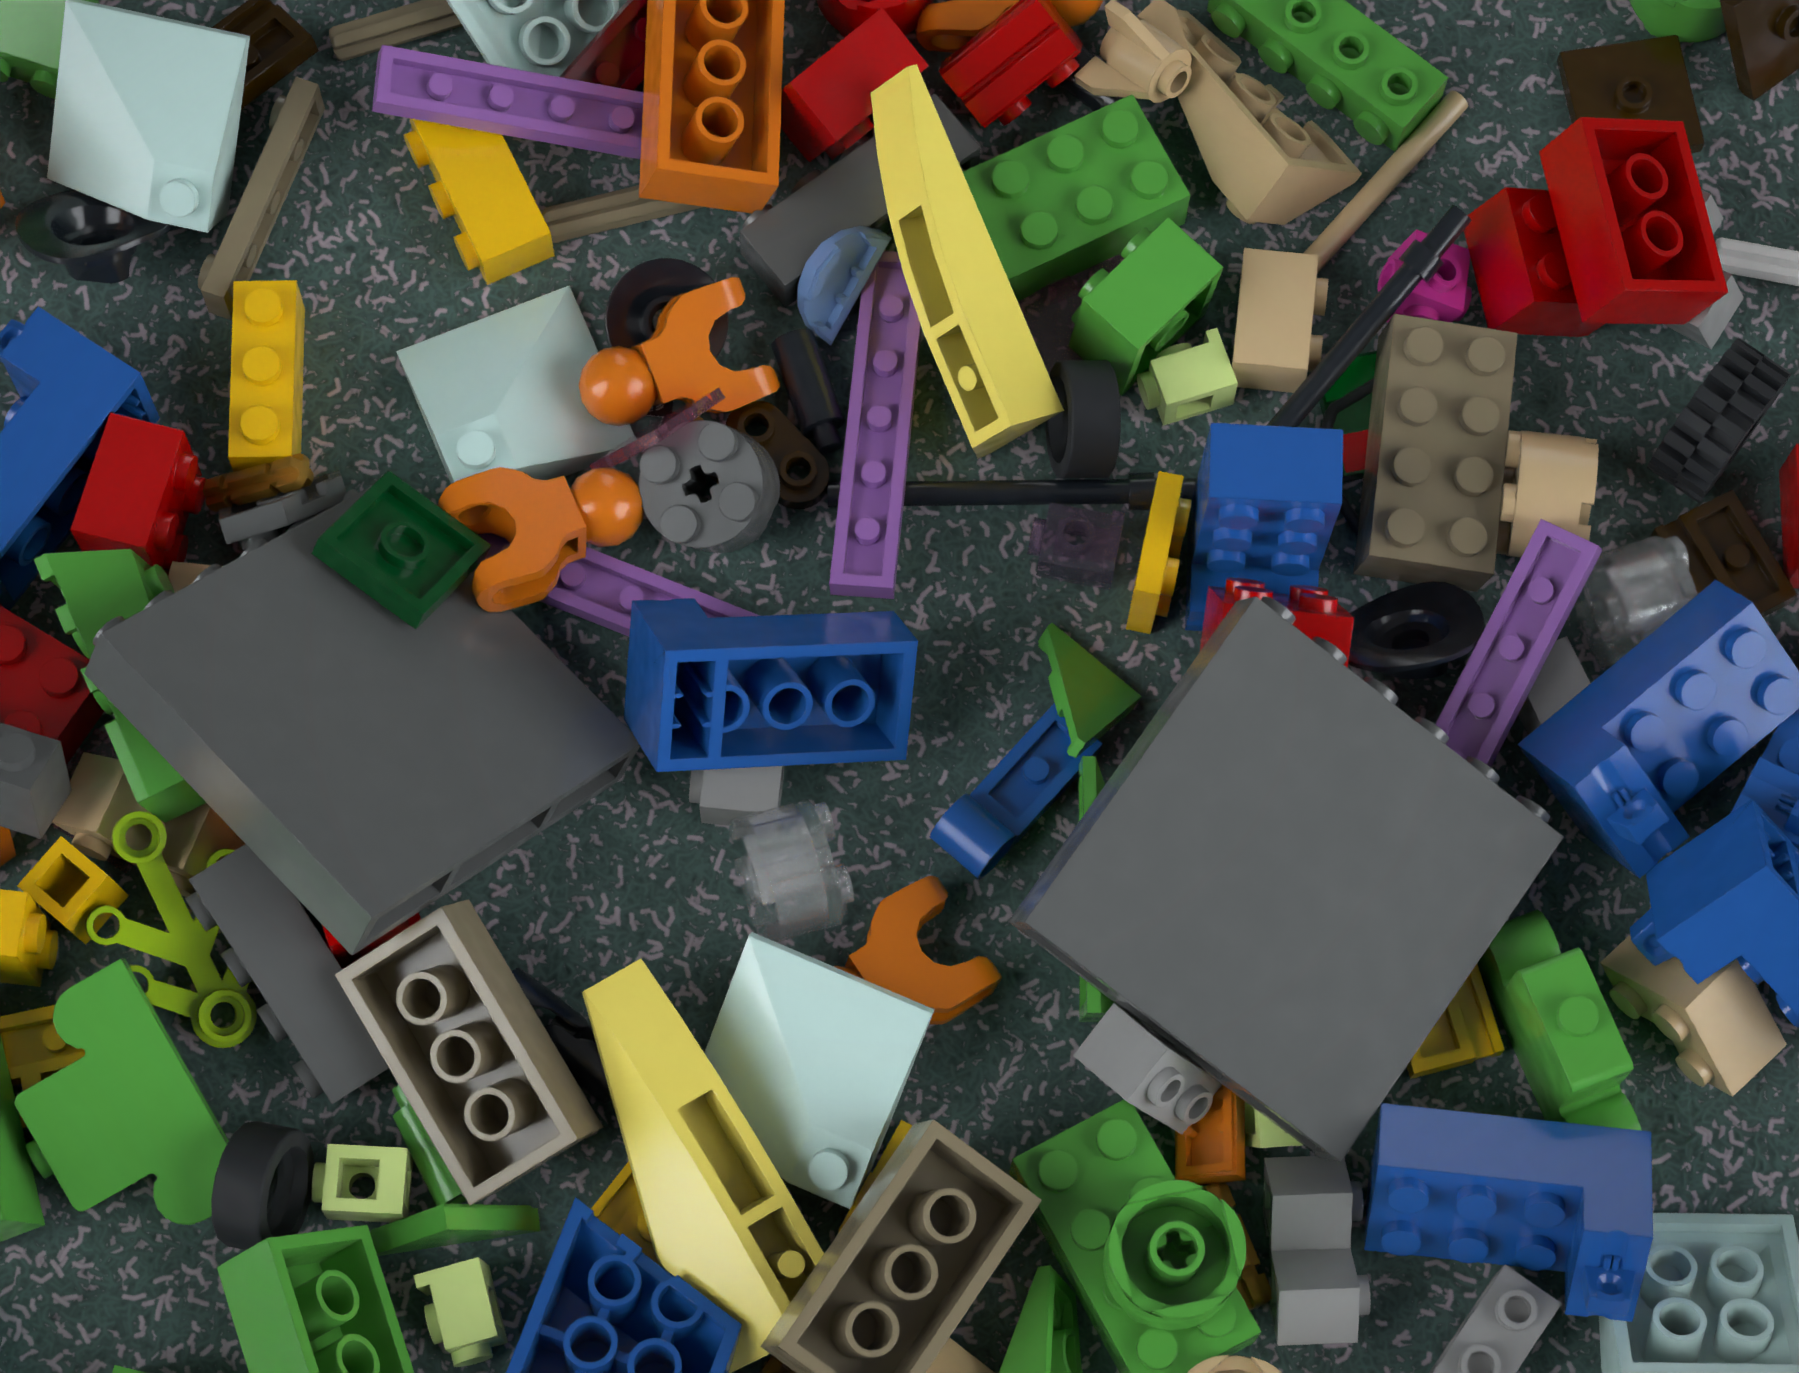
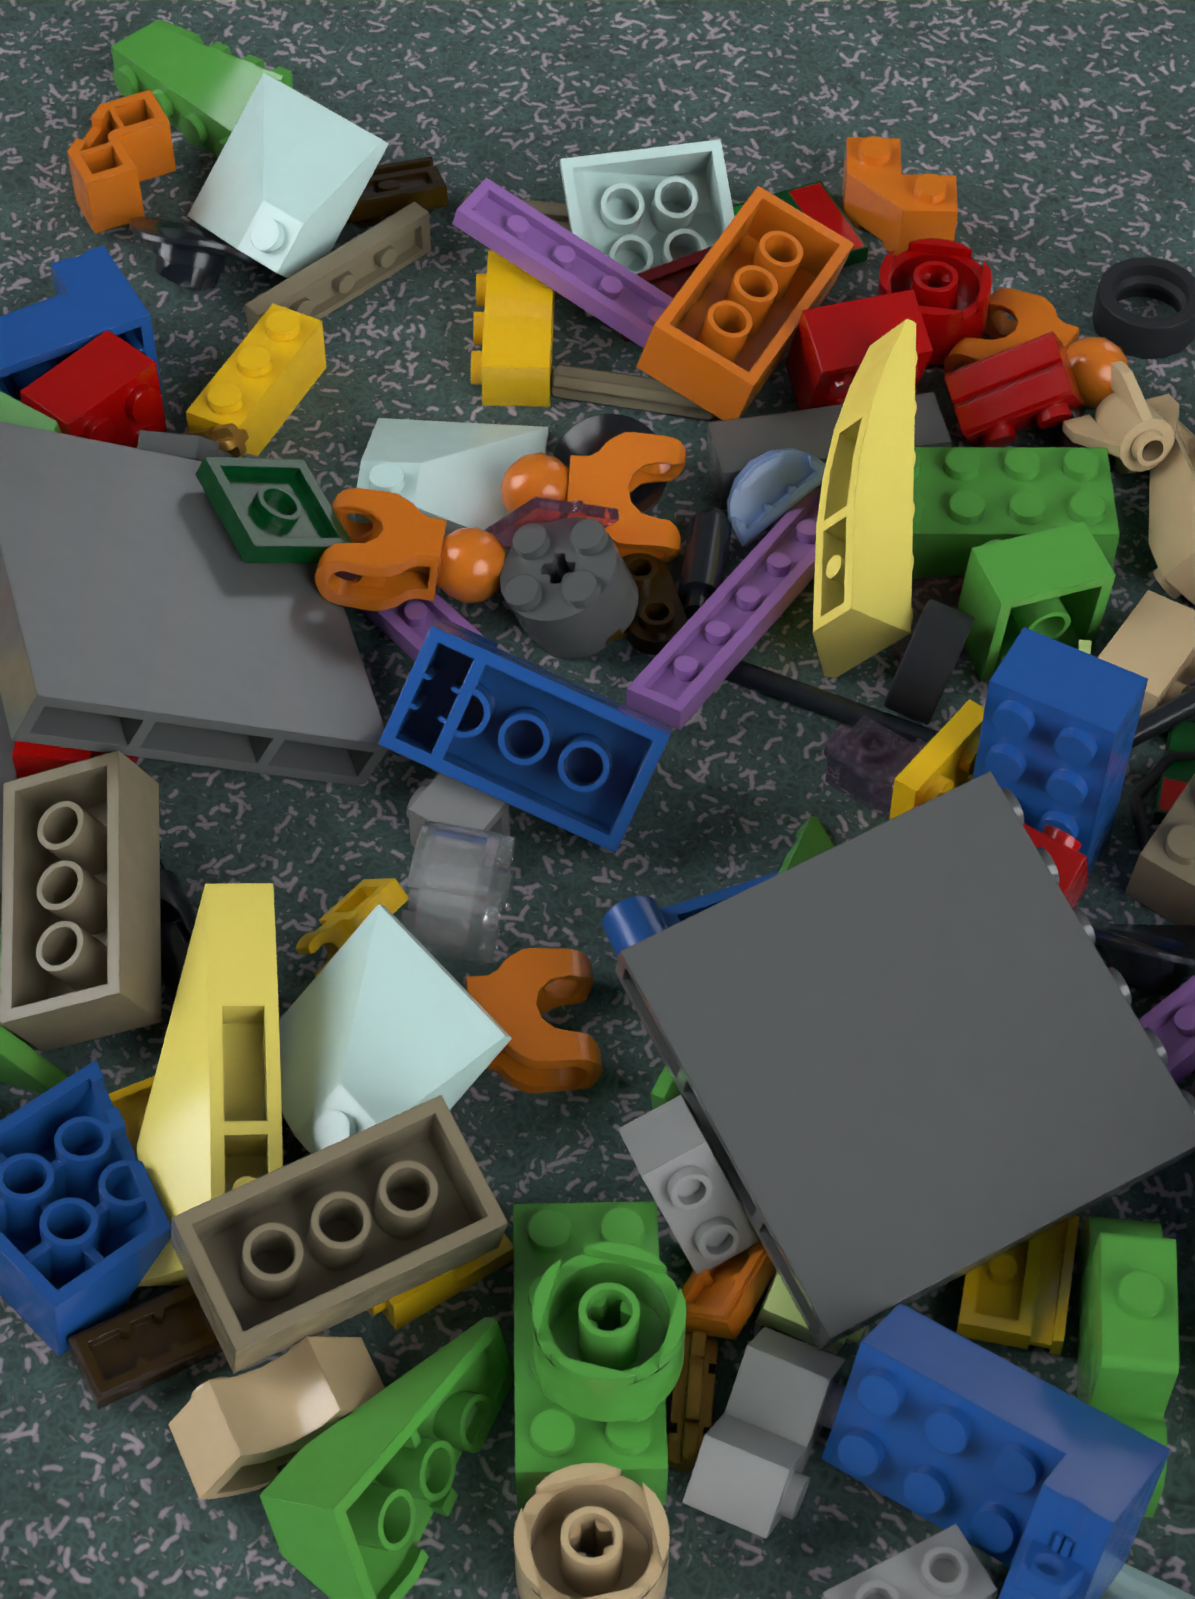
camera: 30 degrees right, 20 degrees down
(701, 931) = (350, 913): none -> yellow plate

